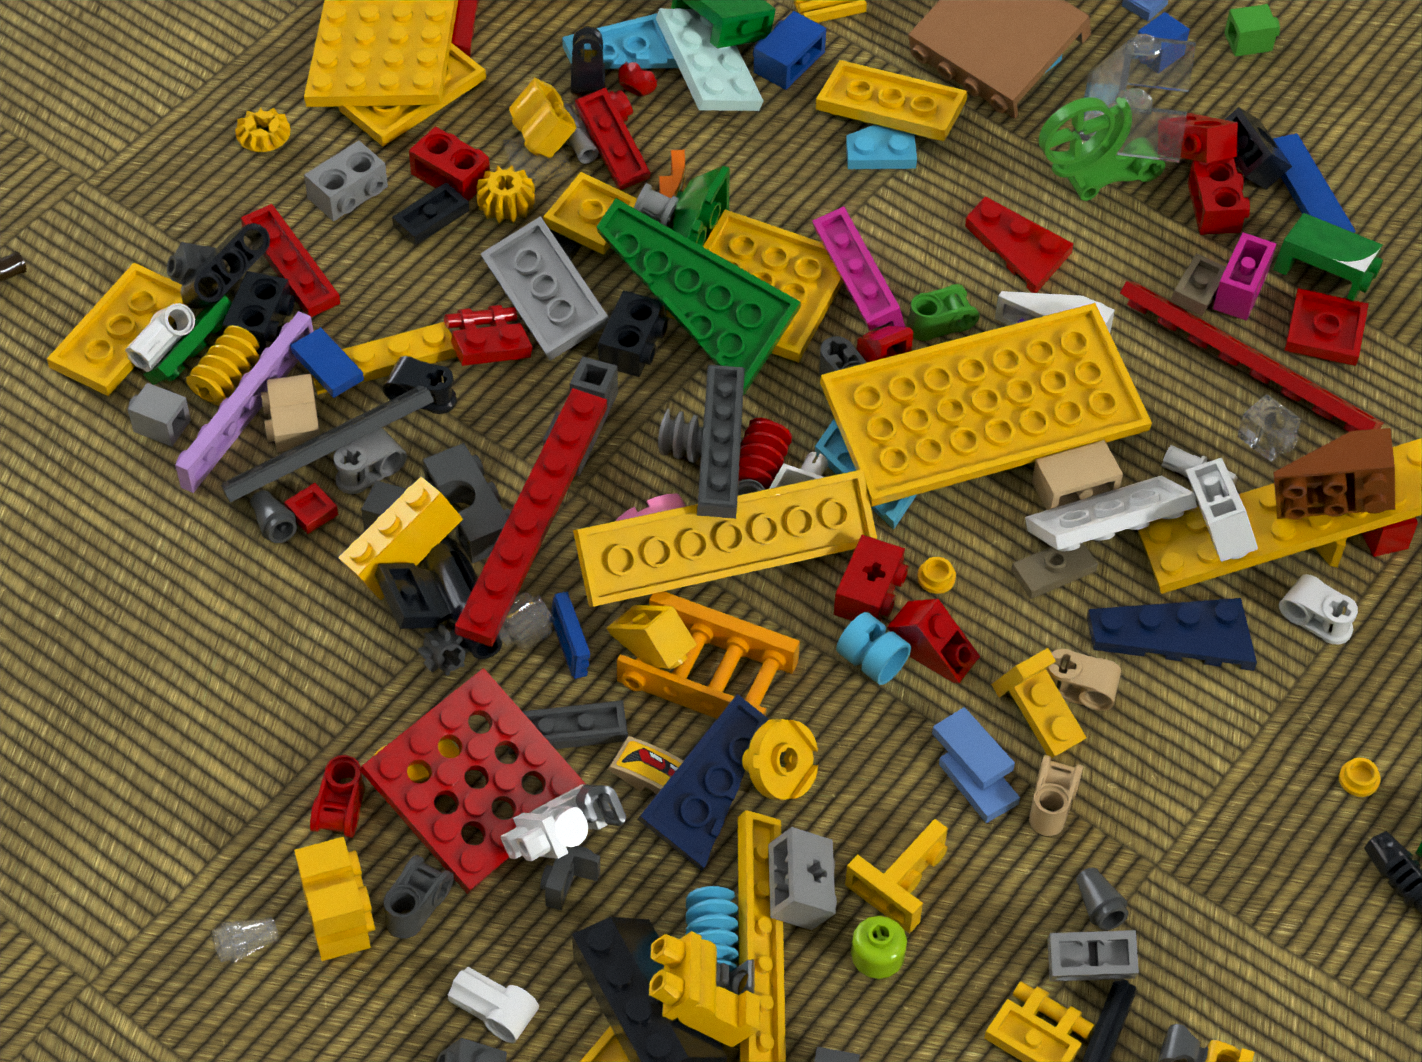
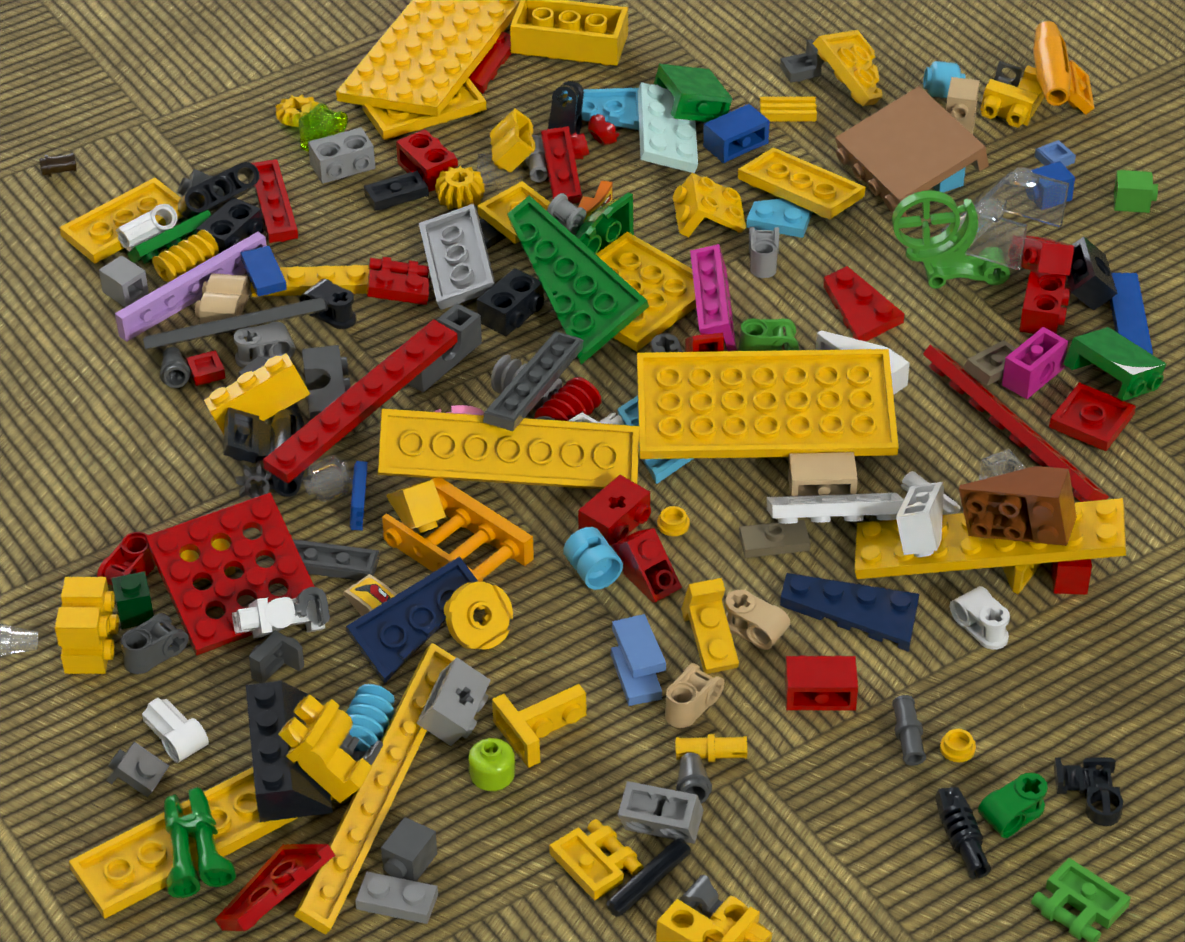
camera: 20 degrees right, 10 degrees down
(302, 147) = (320, 124): none -> clear neon green piece
(372, 843) = (132, 599): none -> dark green brick
(793, 149) = (703, 199): none -> yellow bracket
(885, 198) = (763, 252): none -> light grey piece
(1104, 854) = (713, 747): none -> yellow pin
(1187, 739) = (821, 683): none -> red brick
(1302, 772) = (909, 730): none -> dark grey pin

